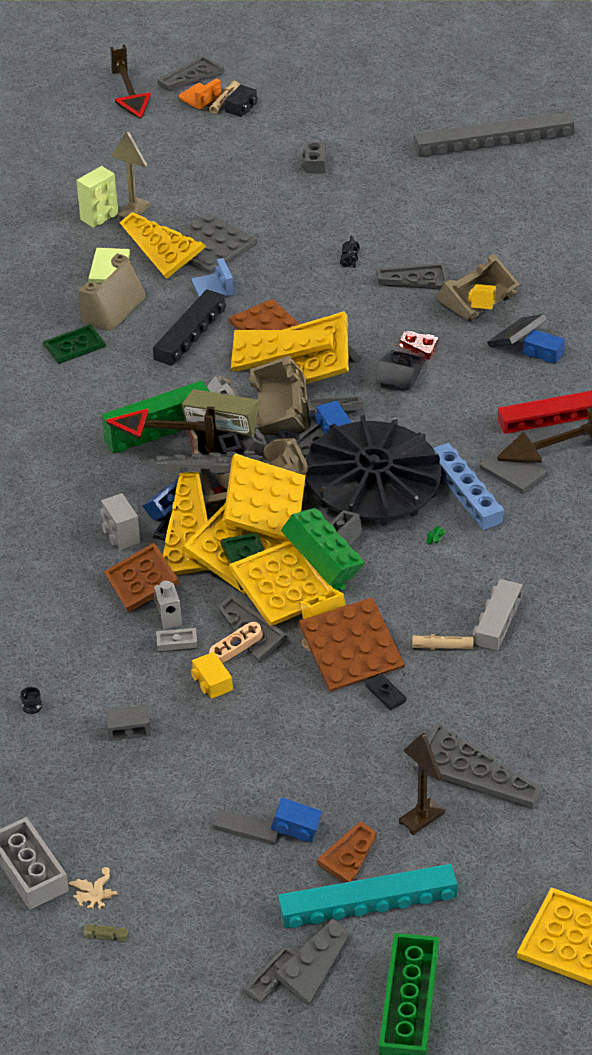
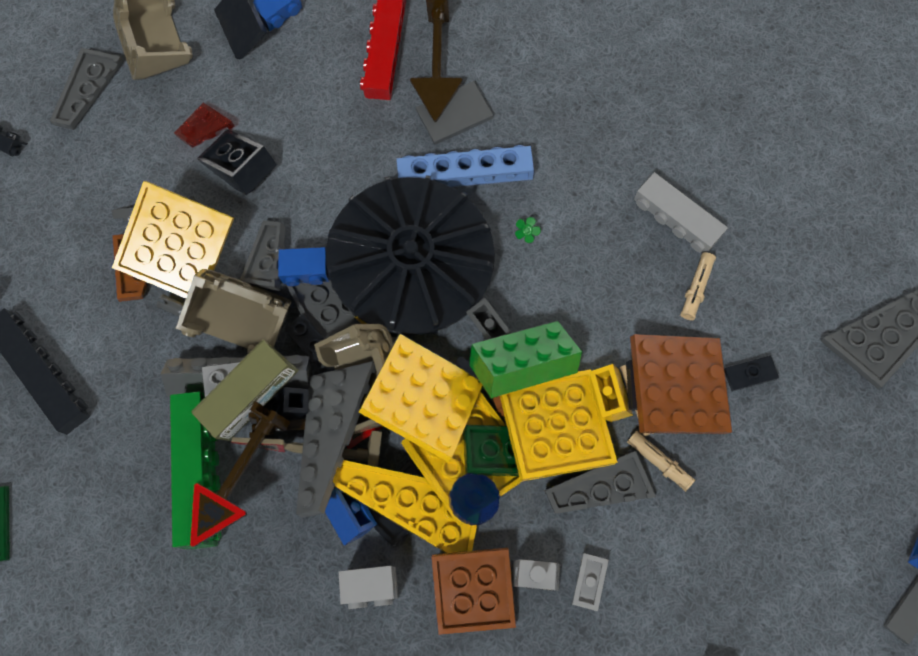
camera: 65 degrees left, 30 degrees up
(204, 548) = (474, 499): none -> clear blue tile
(212, 675) = (669, 561): yellow brick -> none
(237, 635) = (635, 519): light nougat beam -> none
(260, 347) = (131, 292): yellow wing -> none
(264, 316) = (73, 279): dark orange plate -> none
(278, 669) = (661, 461): none -> tan pin
(482, 296) = (170, 29): yellow brick -> none

